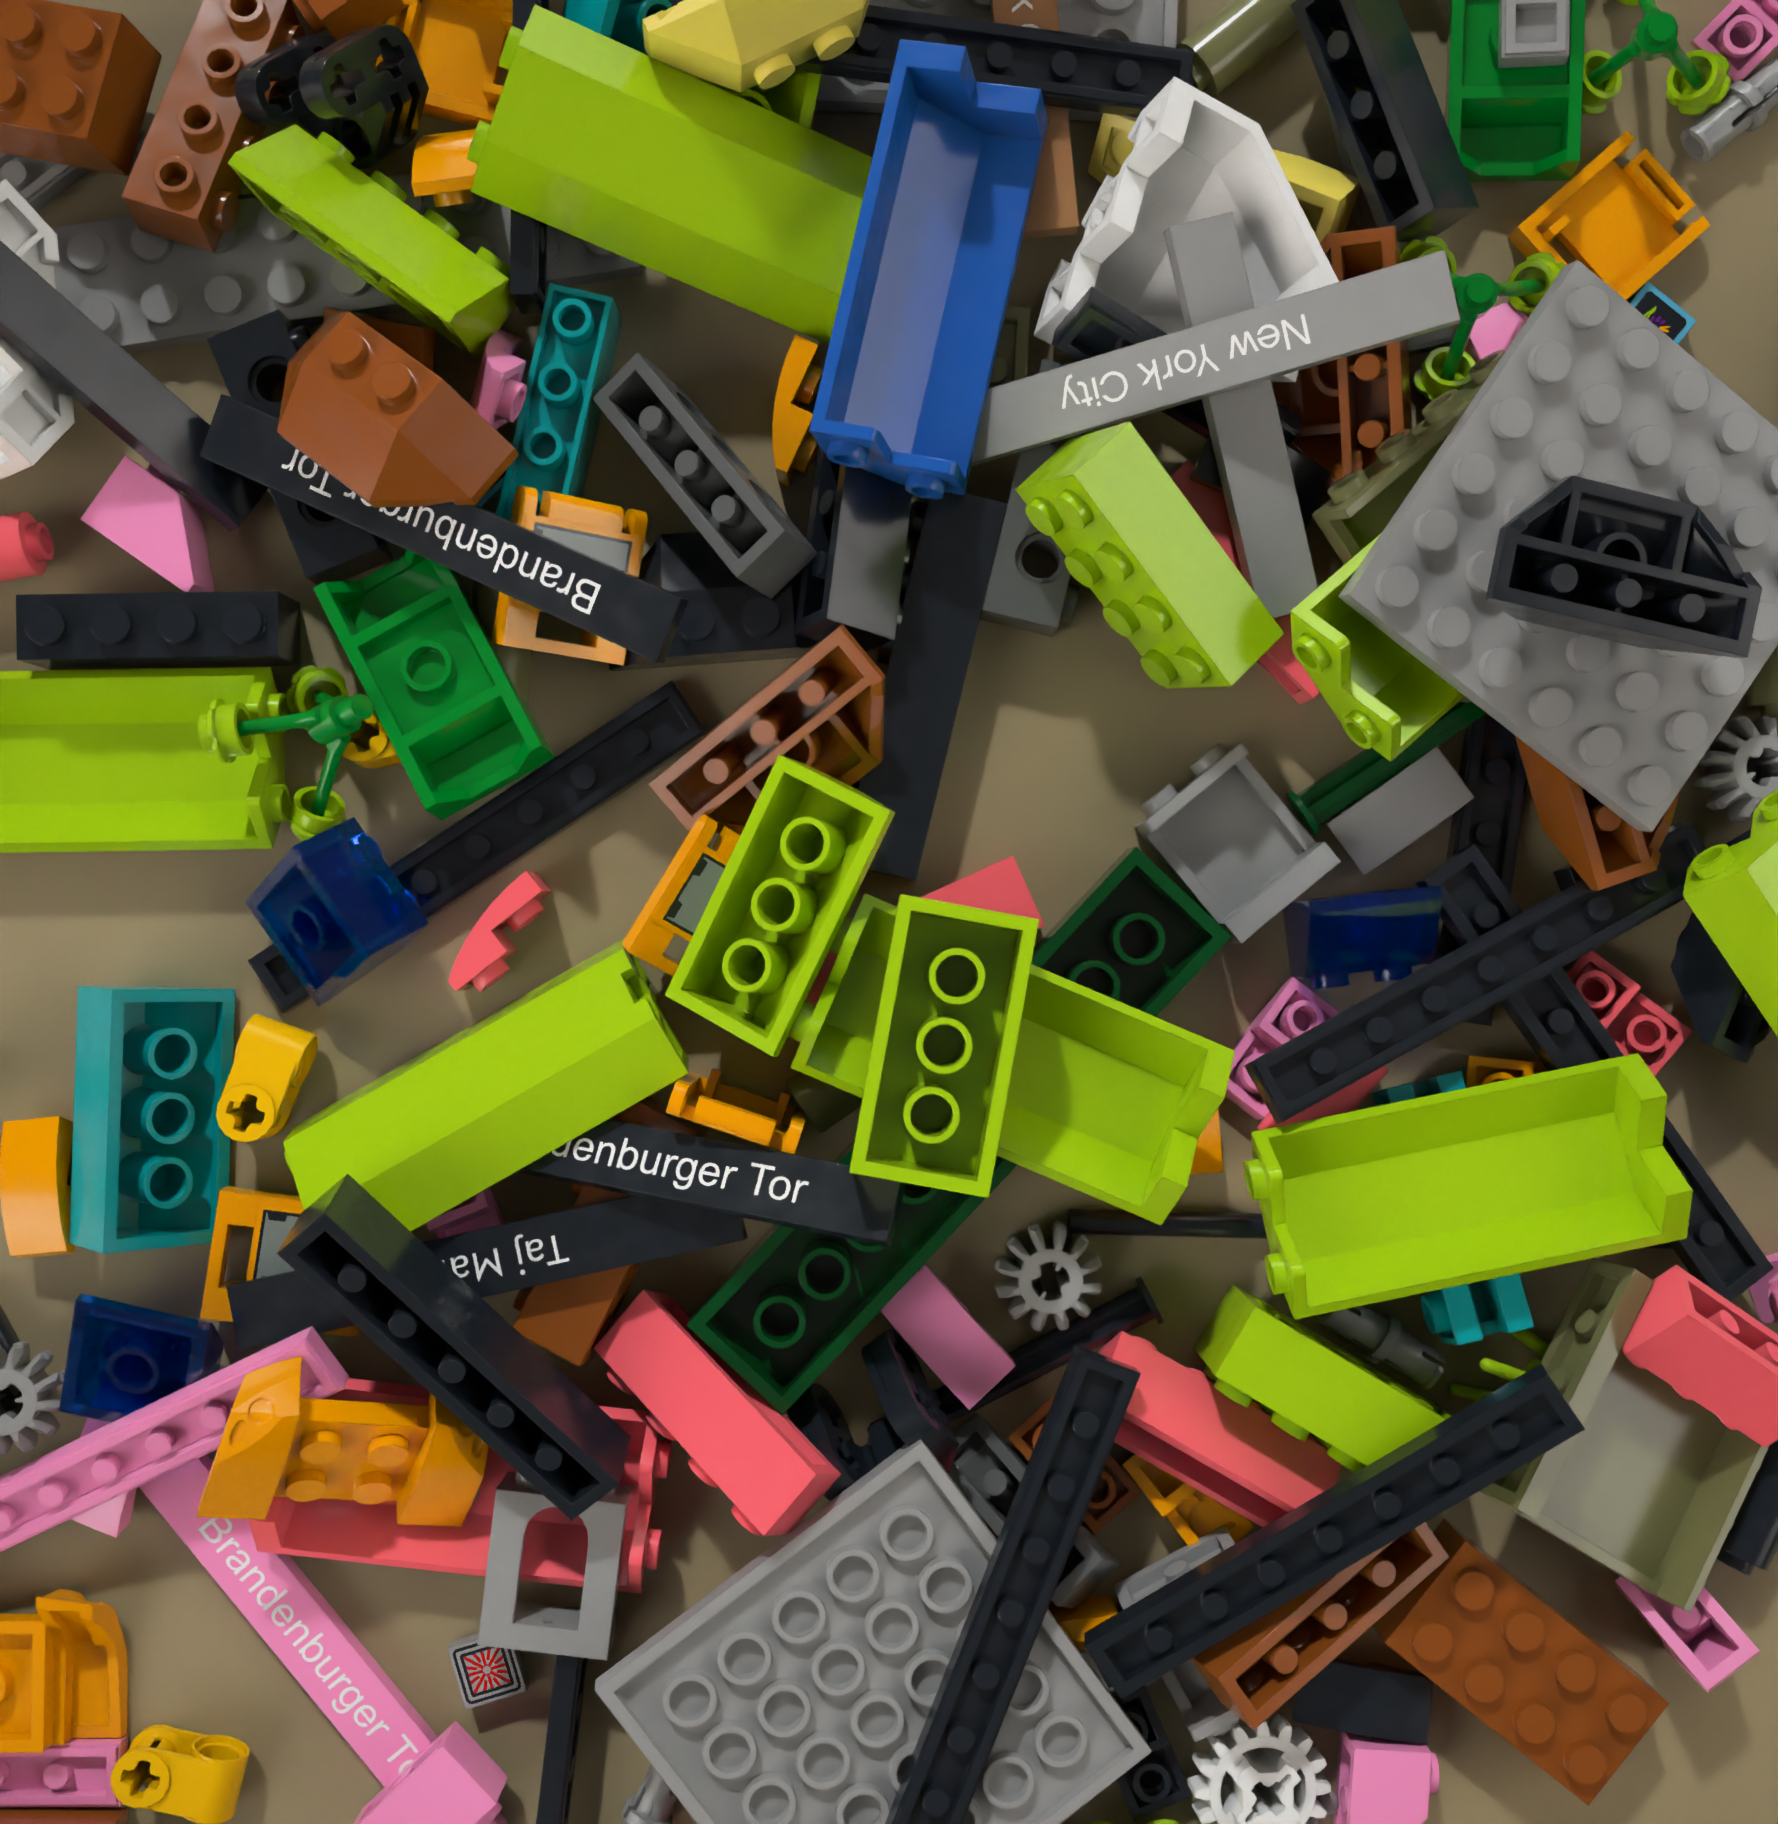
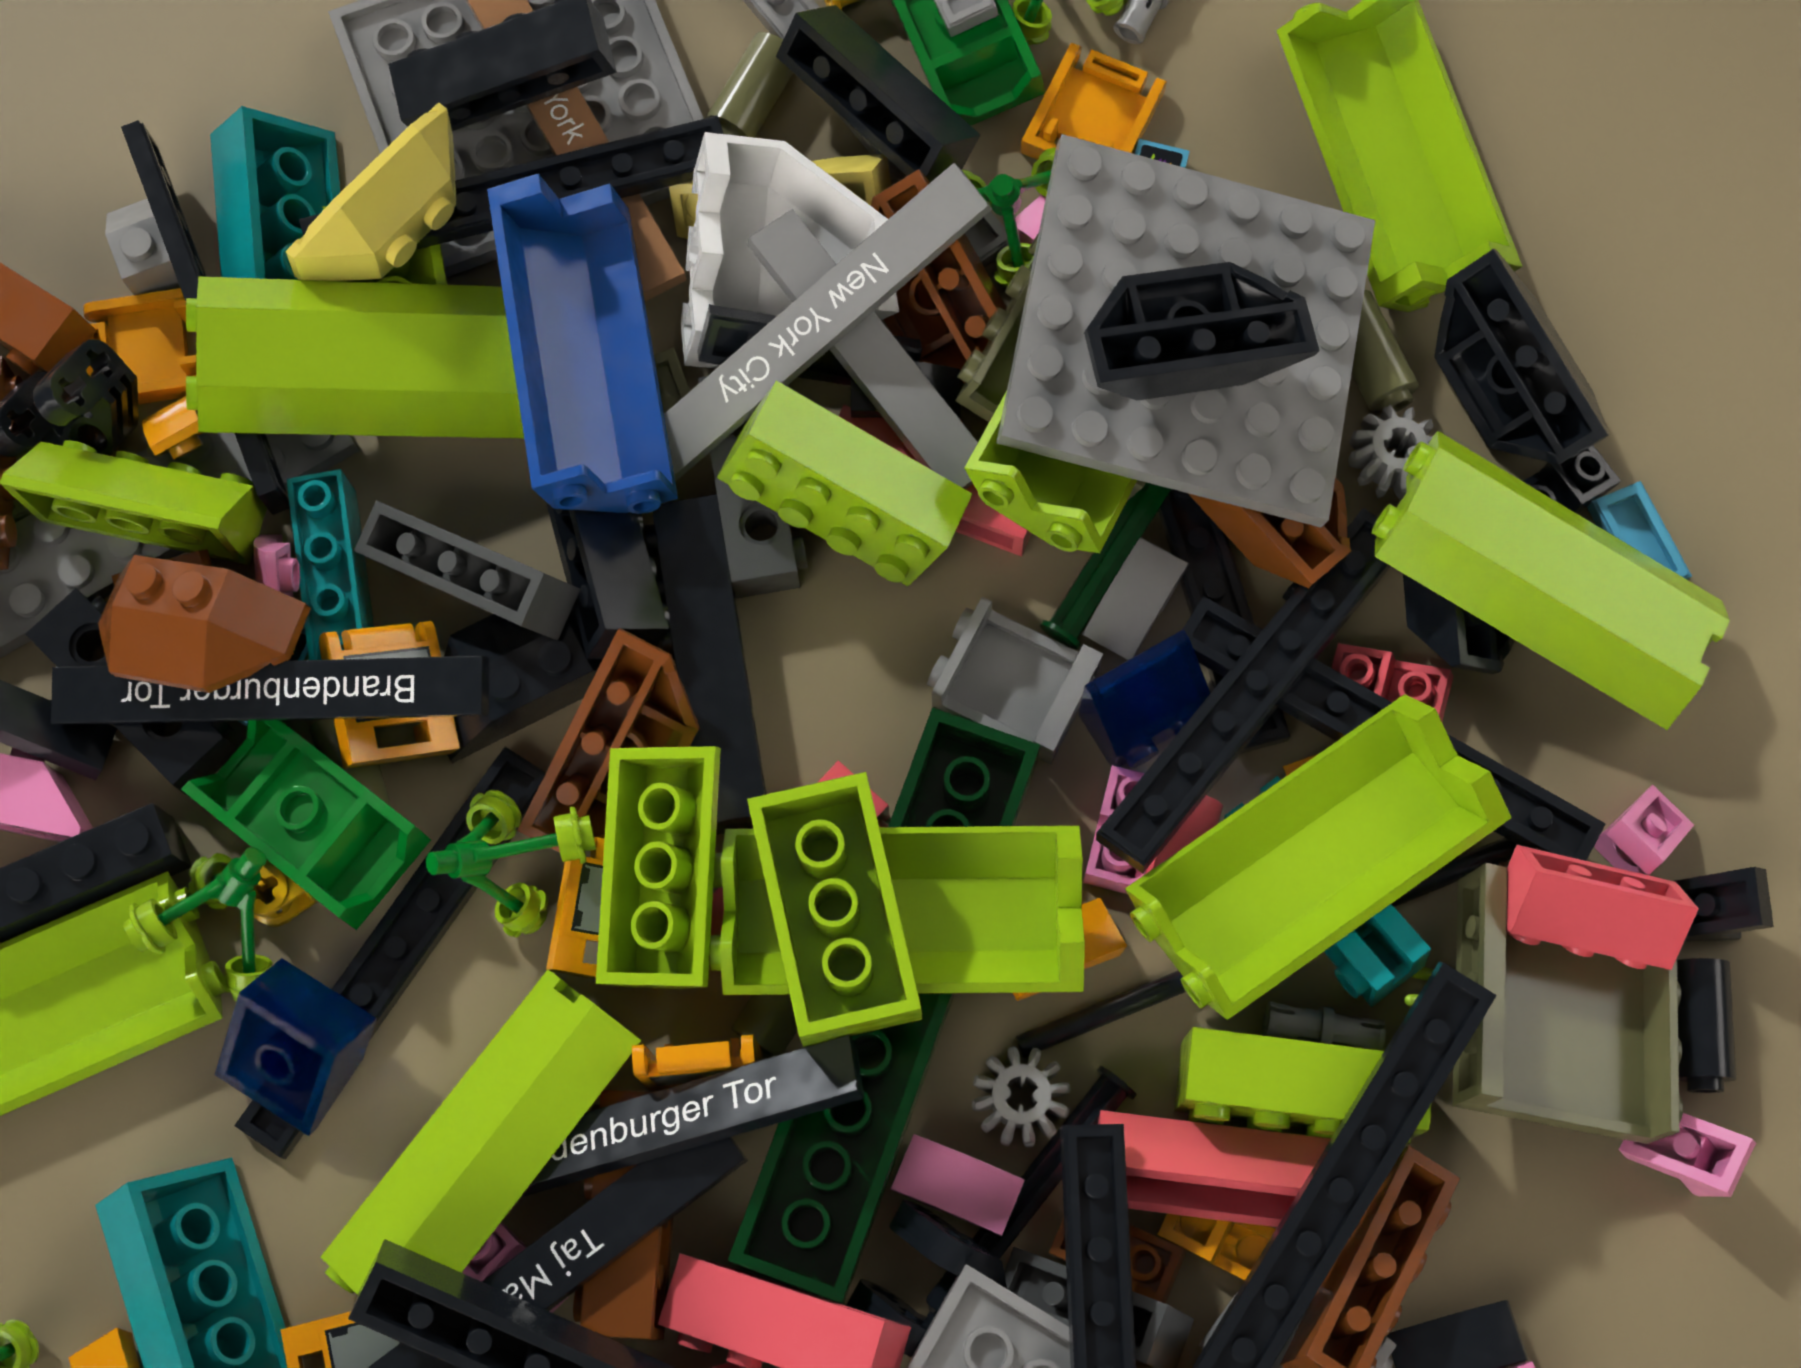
camera: 20 degrees left, 15 degrees down
(267, 1068) = (286, 1209): yellow piece -> none
(487, 946) = (433, 1029): coral slope -> none
(620, 860) = (495, 819): none -> plant
(798, 383) = (521, 504): light orange slope -> none
(1522, 1666) = (1570, 1253): dark orange brick -> none

